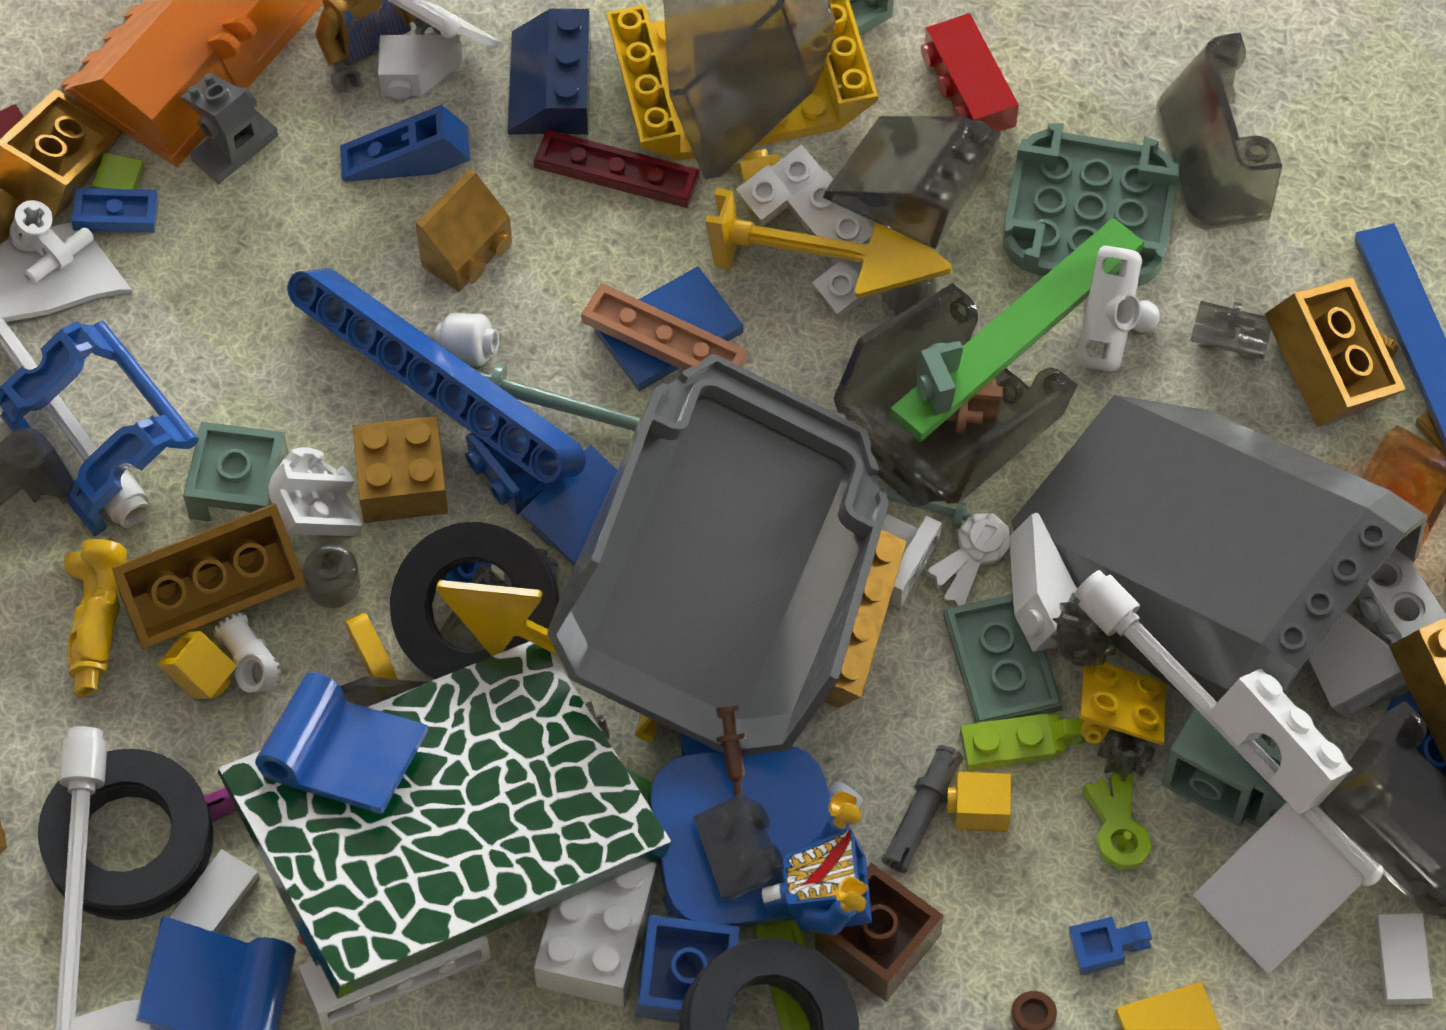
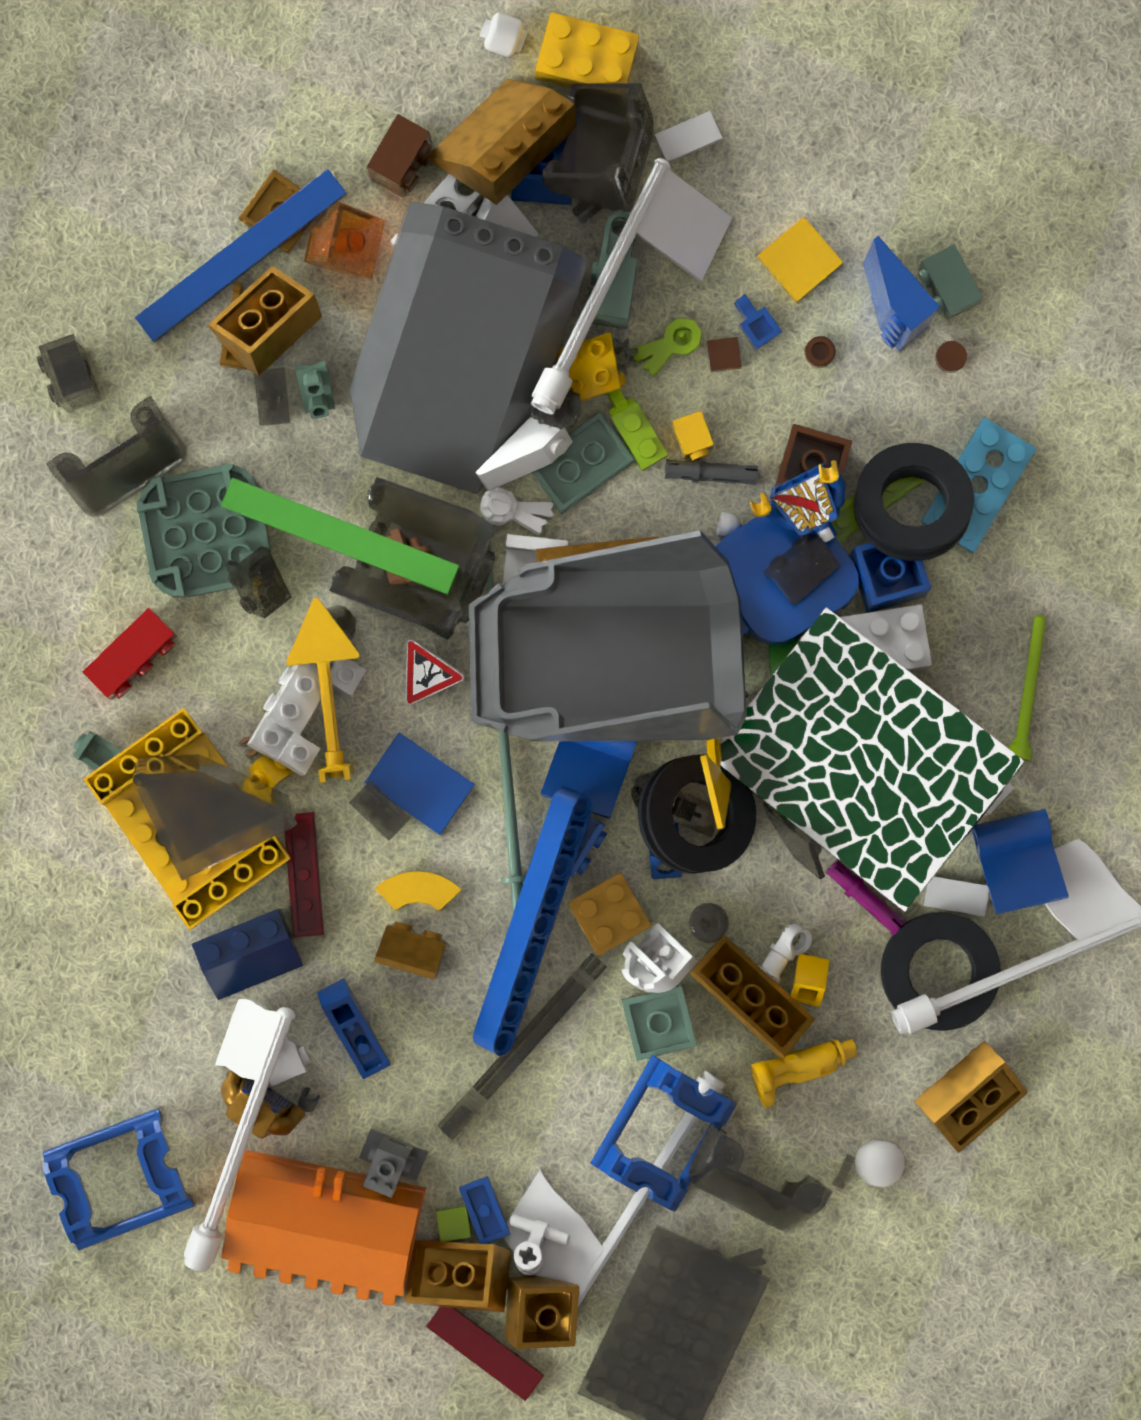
camera: 105 degrees left, 25 degrees up
(289, 322) = (522, 1047): none -> clear smoke piece
(339, 746) = (859, 838): blue door -> none
(369, 647) = (748, 873): yellow beam -> none
(468, 337) = (489, 915): white head -> none
(539, 282) = (418, 887): none -> yellow tile
(654, 264) = (379, 810): none -> clear smoke hips
(655, 330) = (436, 778): nougat plate -> none
(732, 746) = (736, 600): reddish brown piece -> none
(806, 374) = (427, 673): none -> piece
(915, 173) = (241, 656): clear smoke slope -> none
(933, 375) = (422, 569): sand green bracket -> none
(998, 233) = (258, 583): none -> clear smoke bracket
(1078, 889) = (724, 354): none -> reddish brown tile
(1114, 310) = (295, 478): white piece -> none
(1225, 379) = (315, 389): none -> sand green hips
(1308, 761) = (594, 261): white arch -> none
(1347, 120) = (69, 372): none -> clear smoke brick

